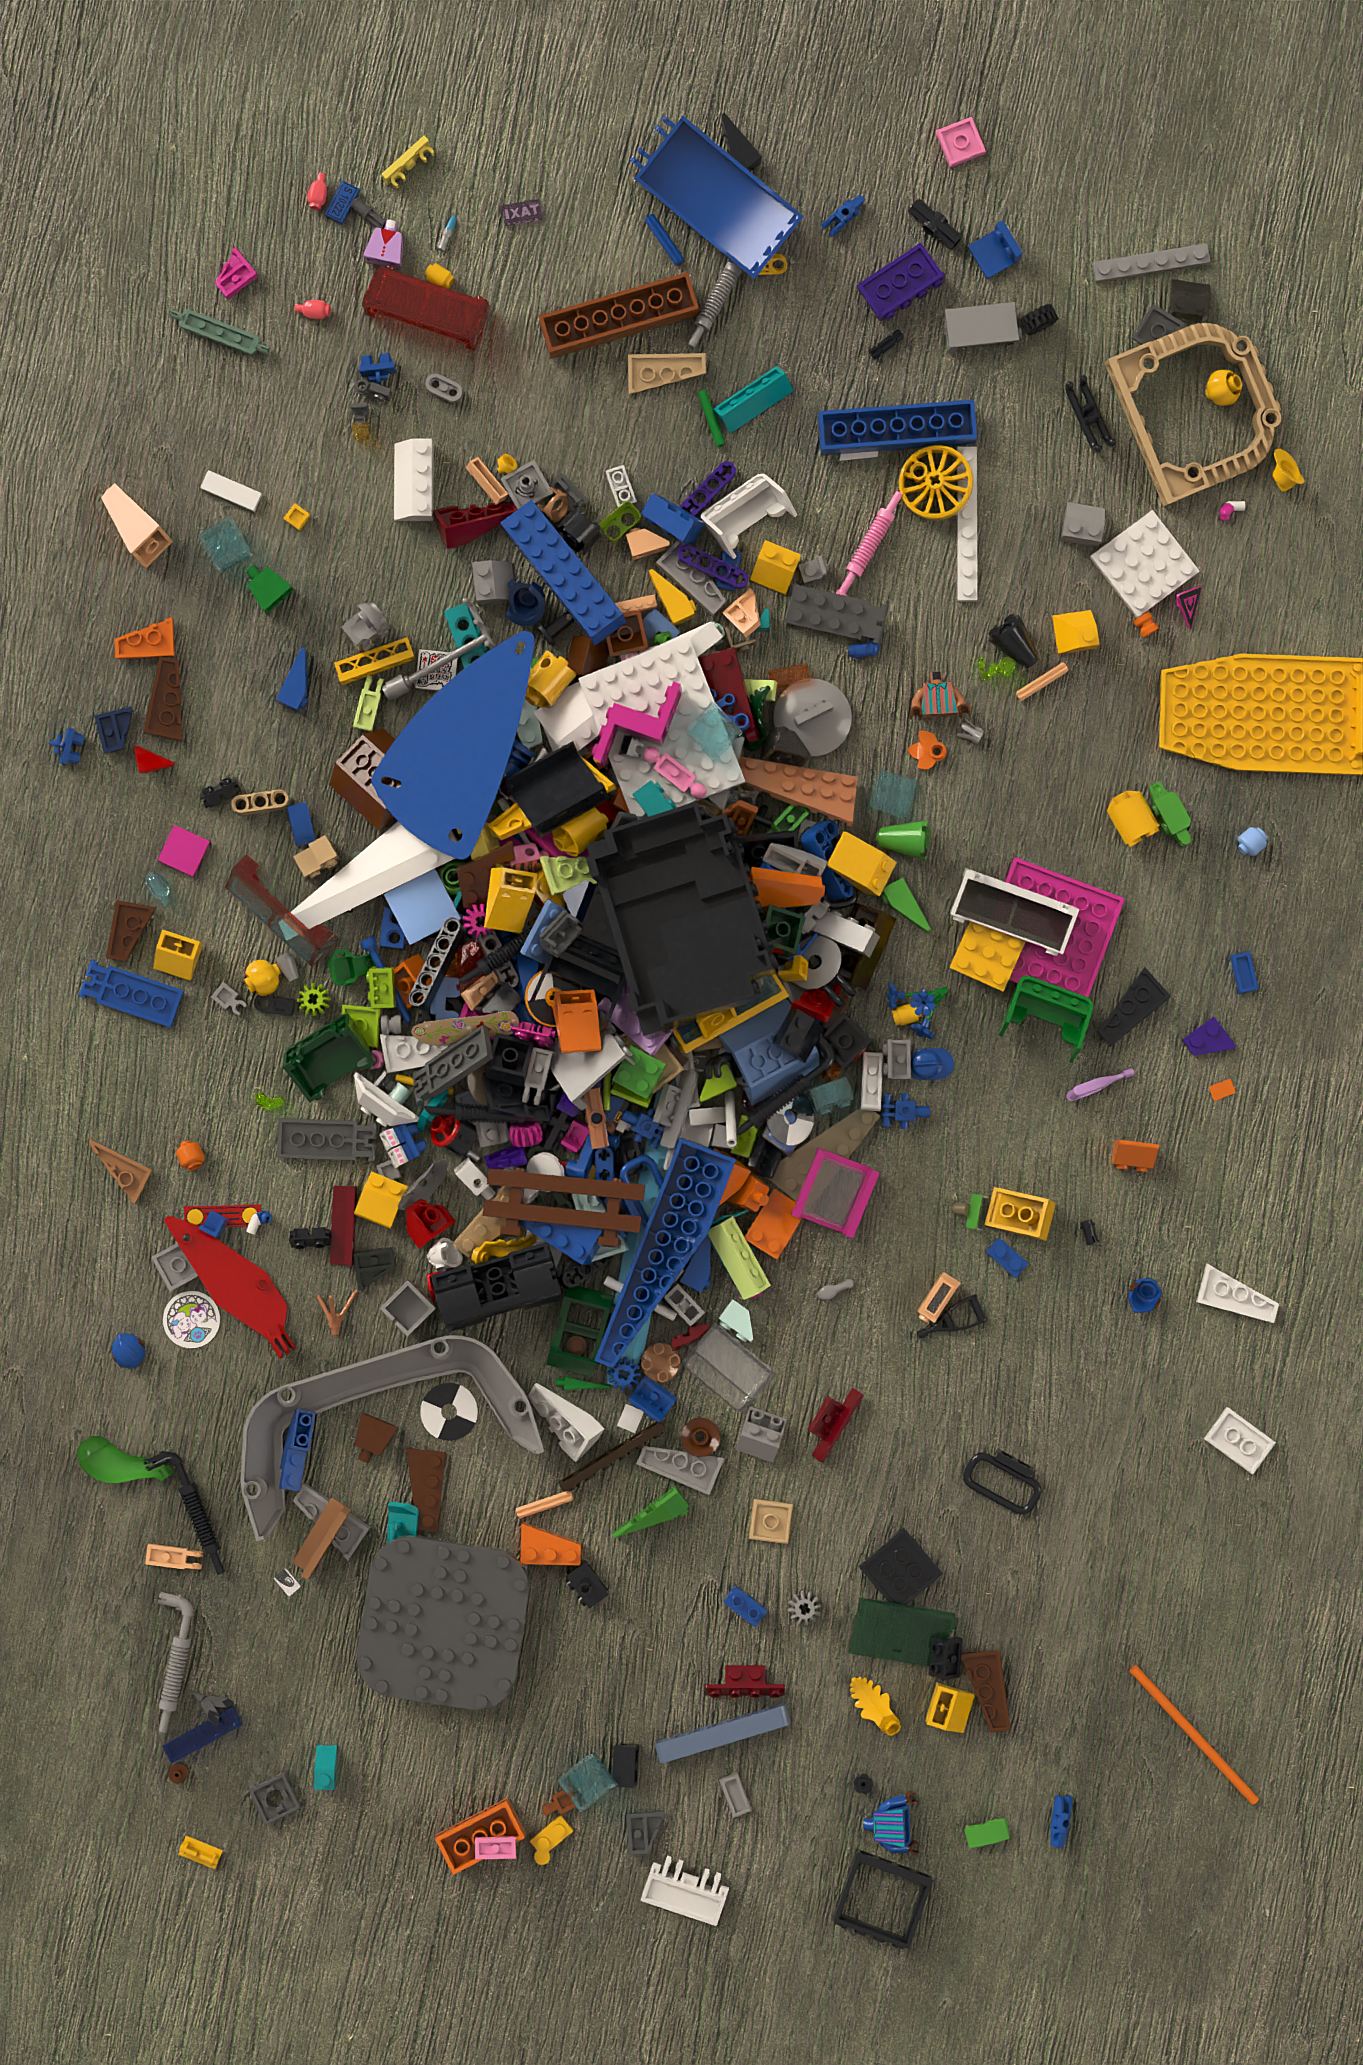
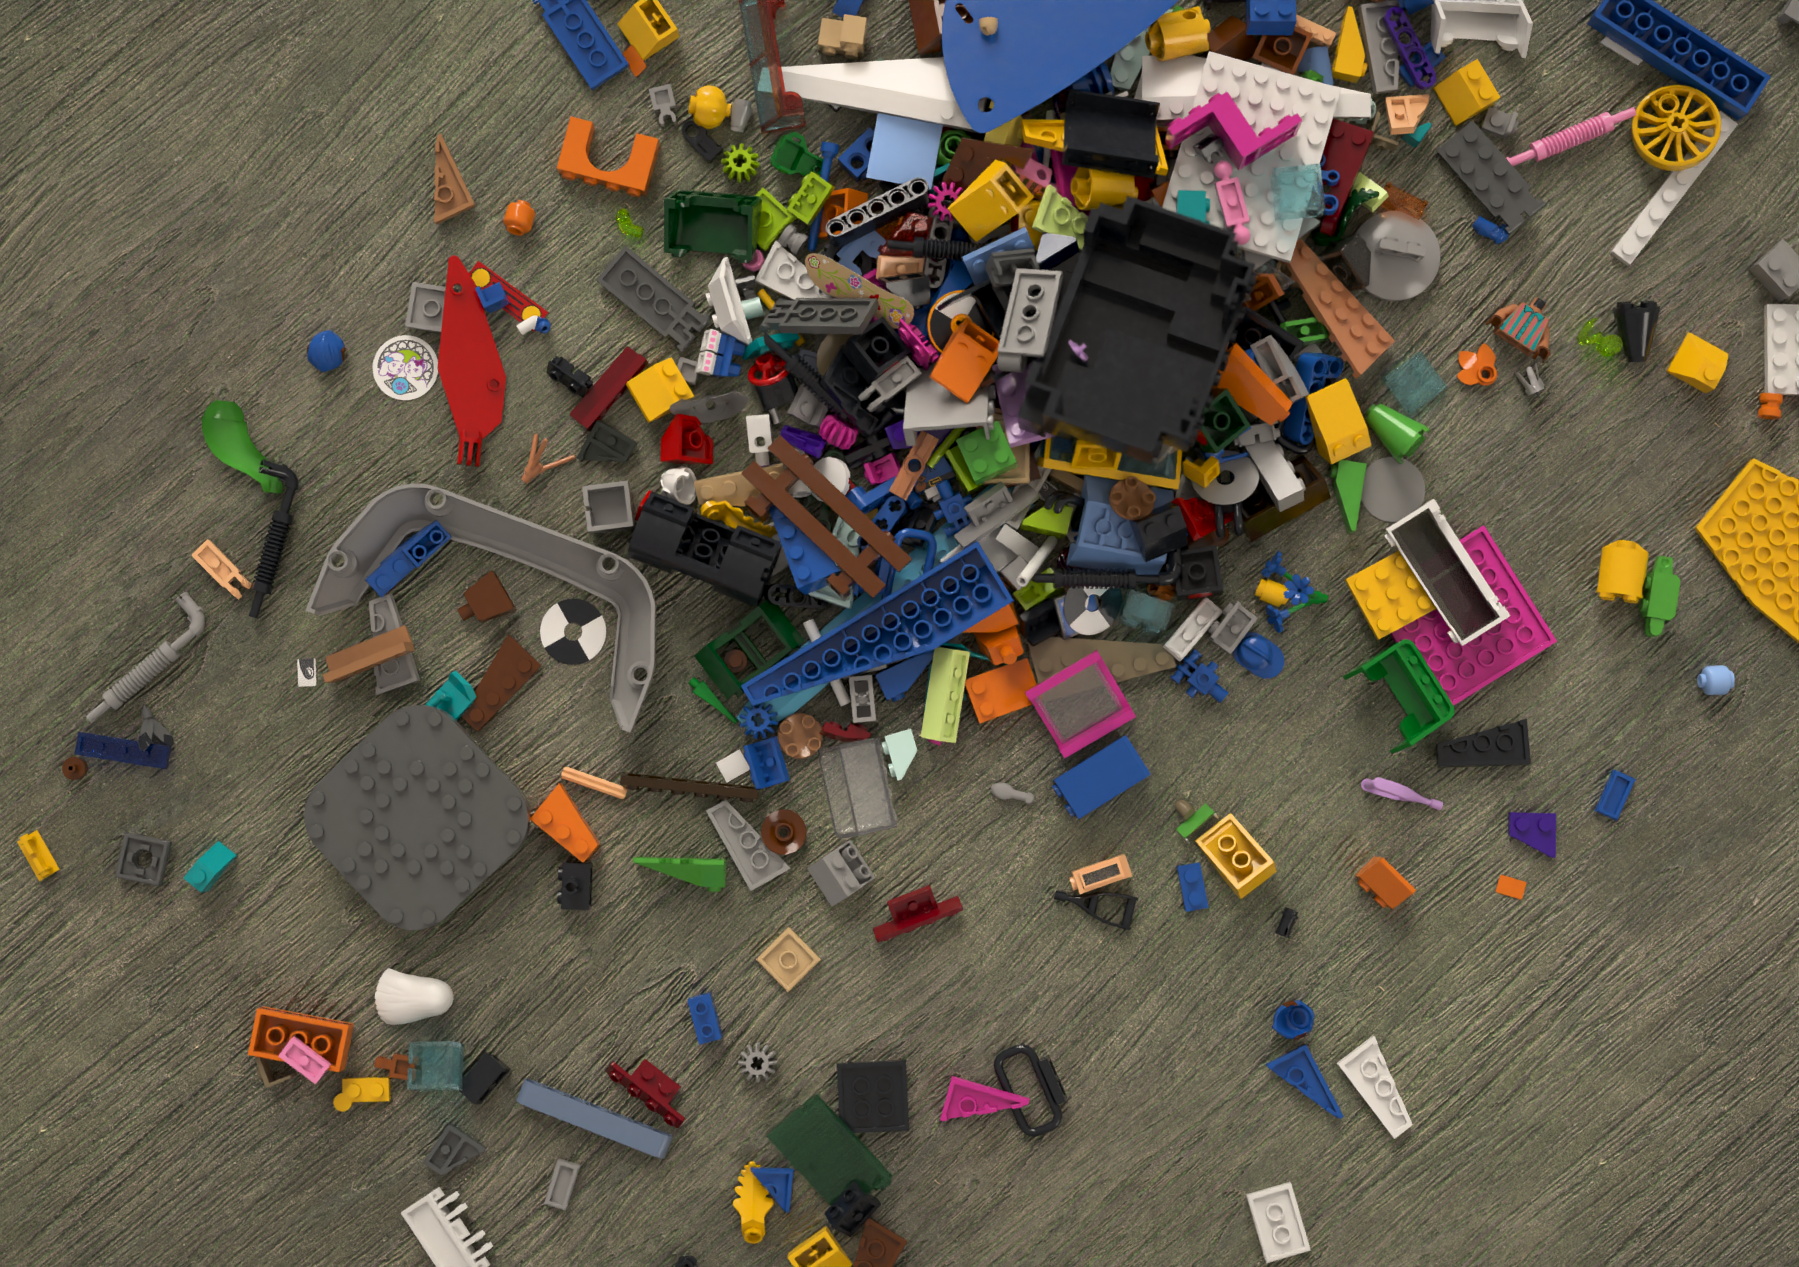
camera: 35 degrees right, 0 degrees up
(184, 984) = (635, 62): none -> orange sticker
(247, 1067) = (632, 177): none -> orange arch
(415, 779) = (988, 25): none -> tan hinge
(474, 1879) = (265, 1073): none -> dark tan bracket
(533, 1749) = (410, 998): none -> white hair
(571, 1424) = (675, 732): white wedge -> none
(609, 973) = (1028, 335): none -> light grey hinge
(649, 957) = (1078, 350): none -> lavender plant
(762, 1028) = (1131, 499): none -> medium nougat dish
(881, 1679) = (777, 1183): none -> blue tile
(887, 1232) = (1100, 777): none -> blue slope
(934, 880) = (1392, 489): none -> light grey sticker
(968, 1518) = (971, 1098): none -> dark pink wing
(1042, 681) = (1632, 384): light nougat axle -> none
(1177, 1326) = (1303, 1073): none -> blue wing

